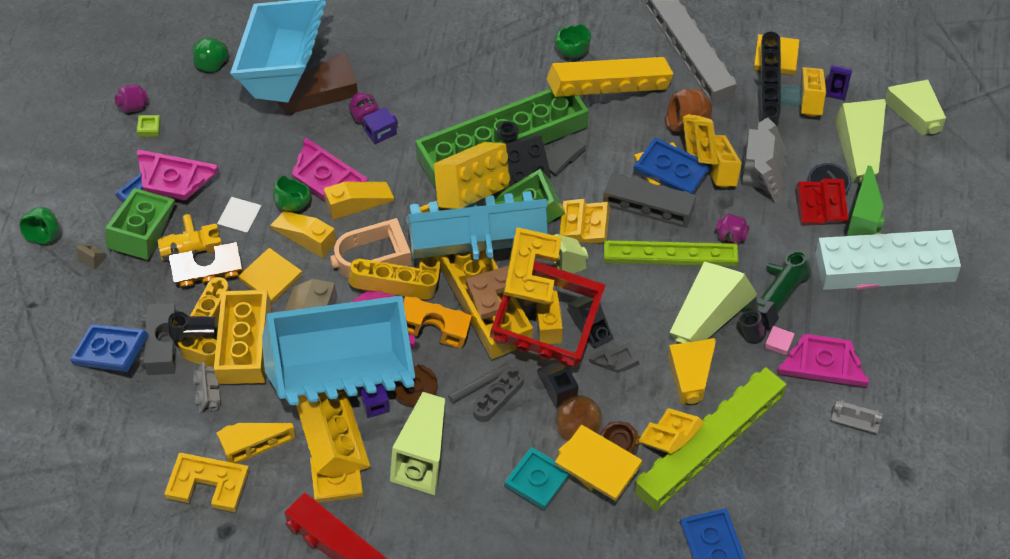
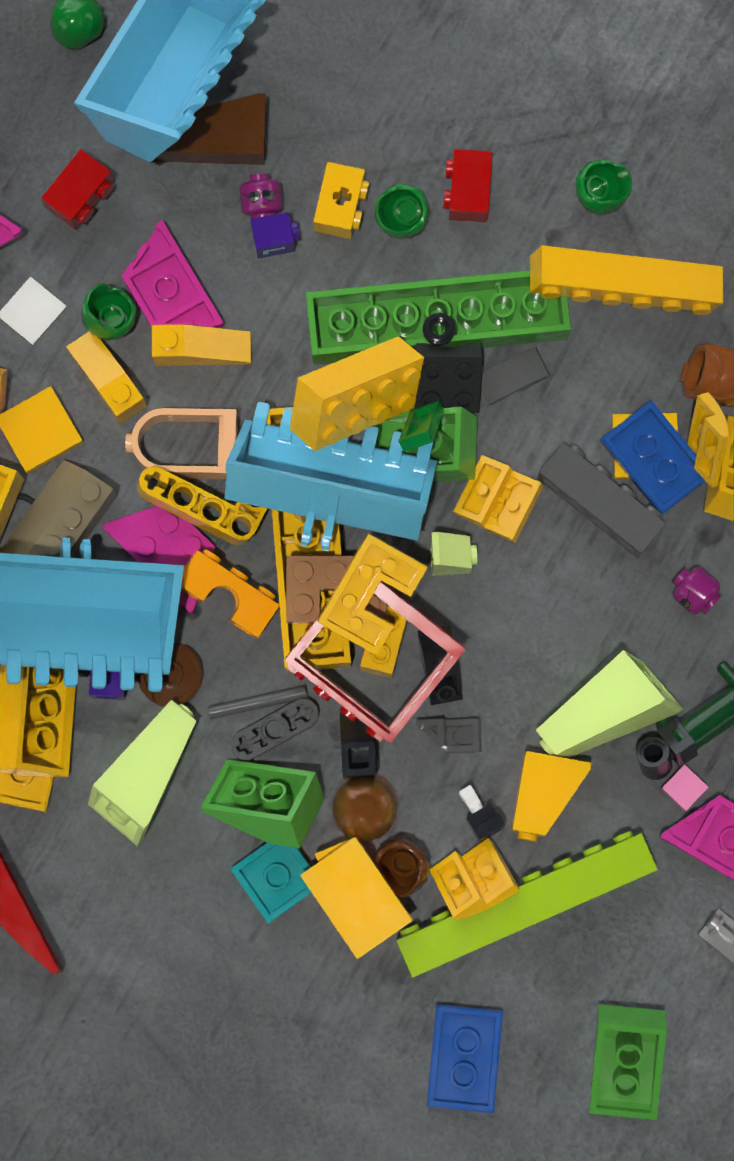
camera: 20 degrees right, 25 degrees up
(246, 137) = (78, 190): none -> red brick
(414, 96) = (337, 183): none -> yellow brick
(455, 88) = (401, 211): none -> green hair
(491, 66) = (469, 185): none -> red brick
(512, 430) = (265, 801): none -> bright green slope
(520, 182) = (421, 426): none -> green tile
(659, 399) = (484, 820): none -> black piece
(670, 253) = (596, 594): lime tile -> none
(824, 509) = (628, 1061): none -> bright green slope

